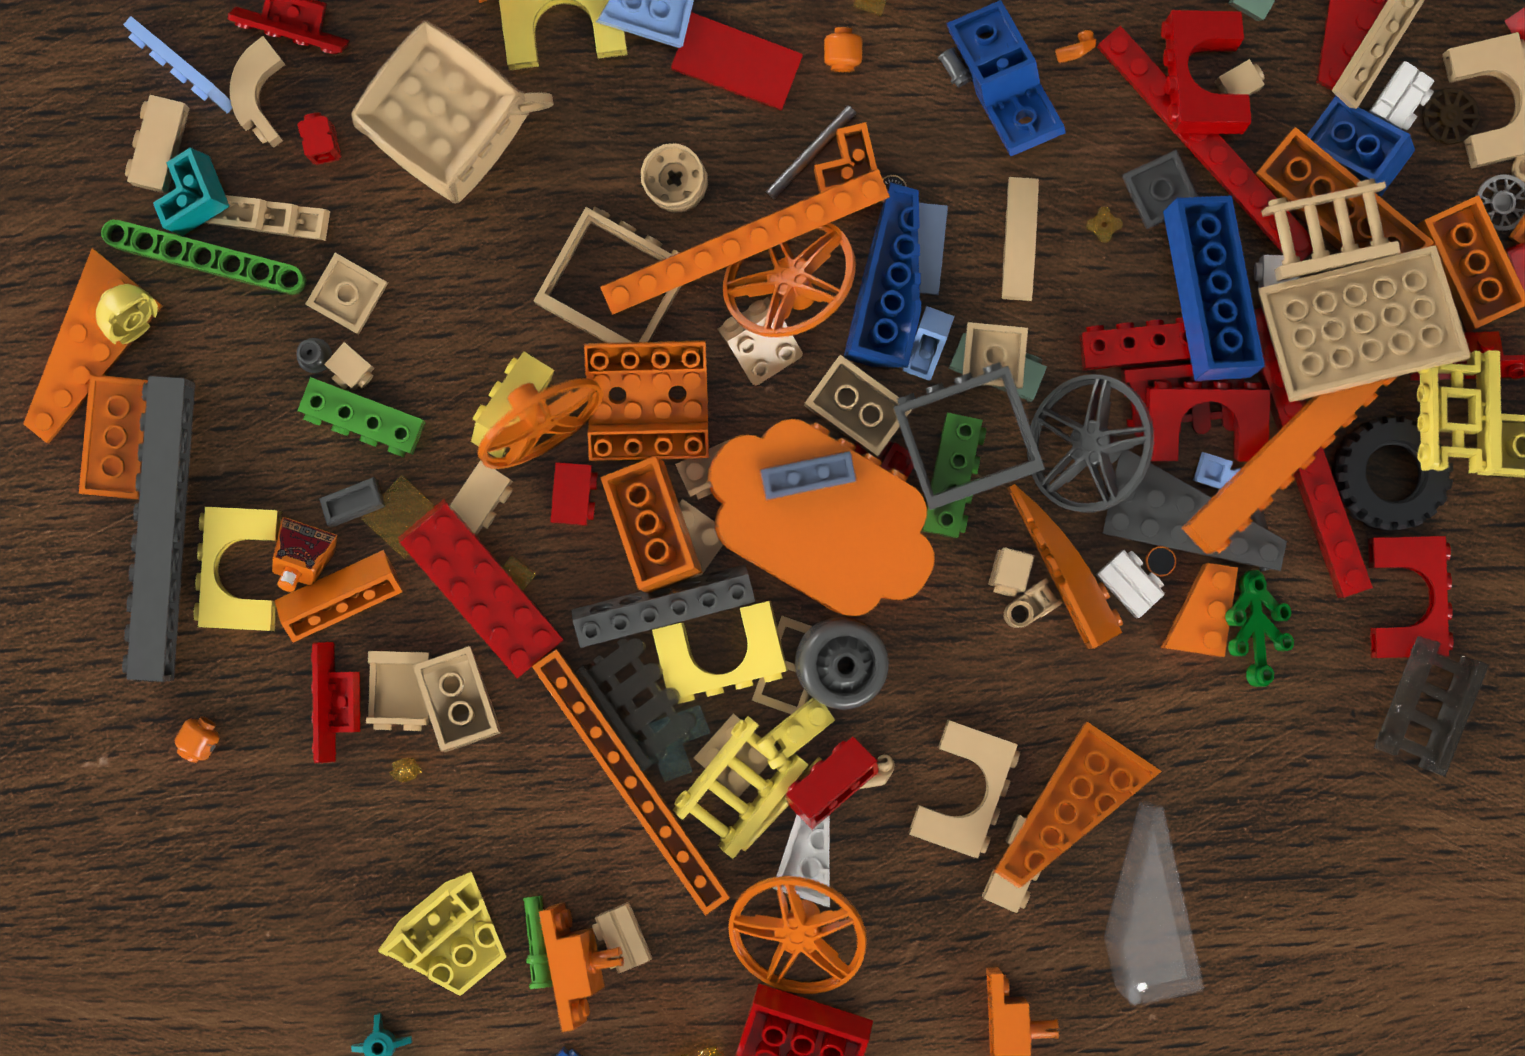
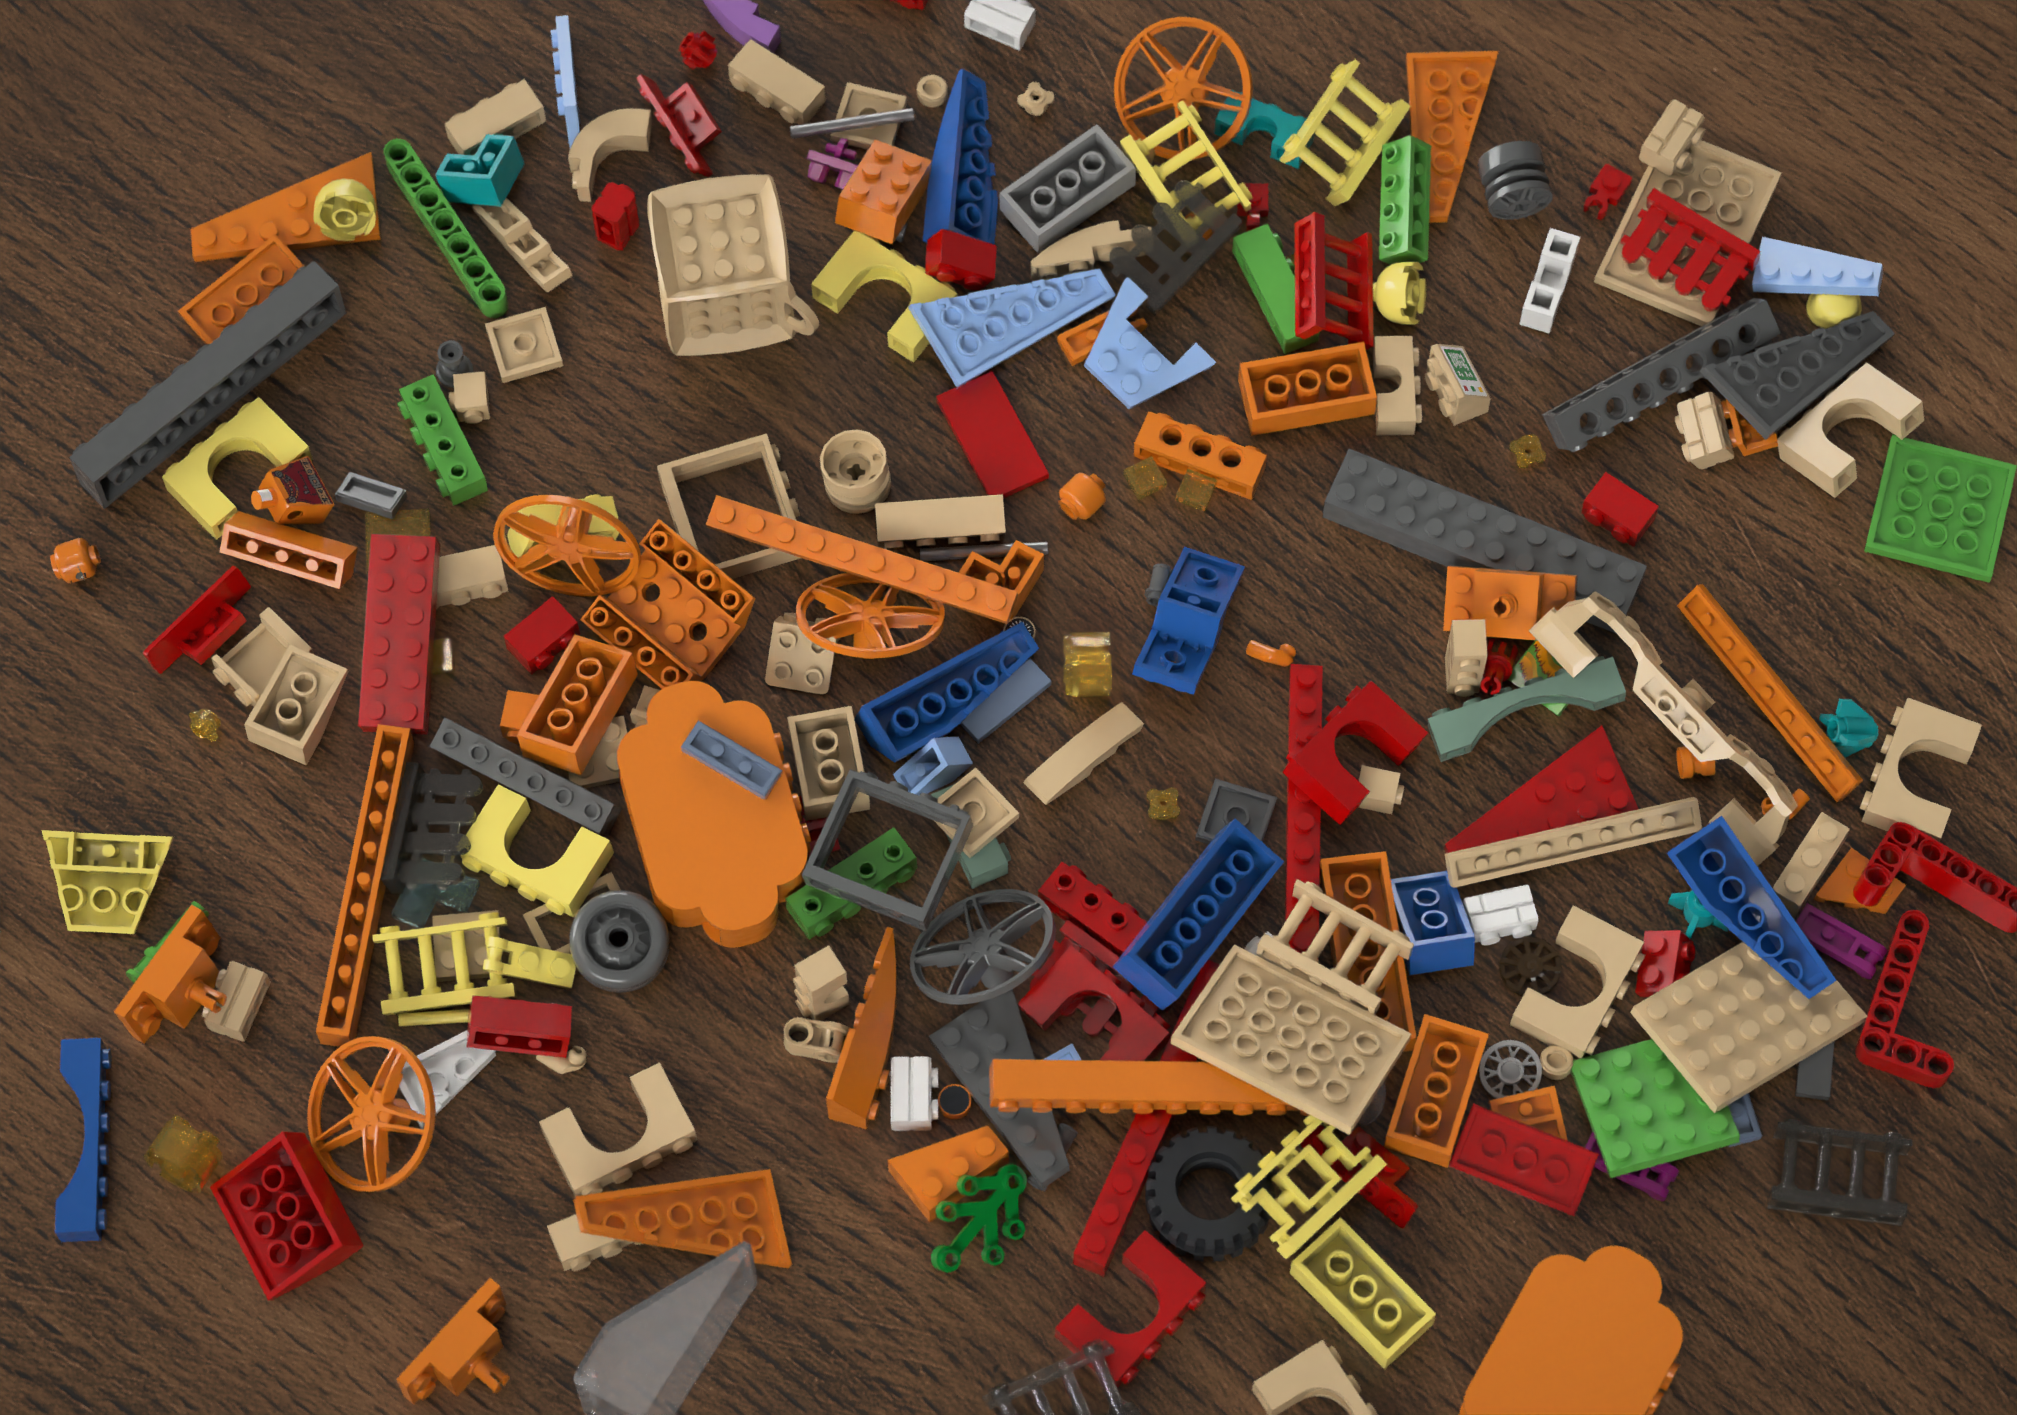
camera: 50 degrees right, 20 degrees down
(615, 566) = (515, 712): none -> orange brick
(764, 158) = (940, 519): none -> tan brick
(967, 173) = (1089, 664): none -> clear yellow brick

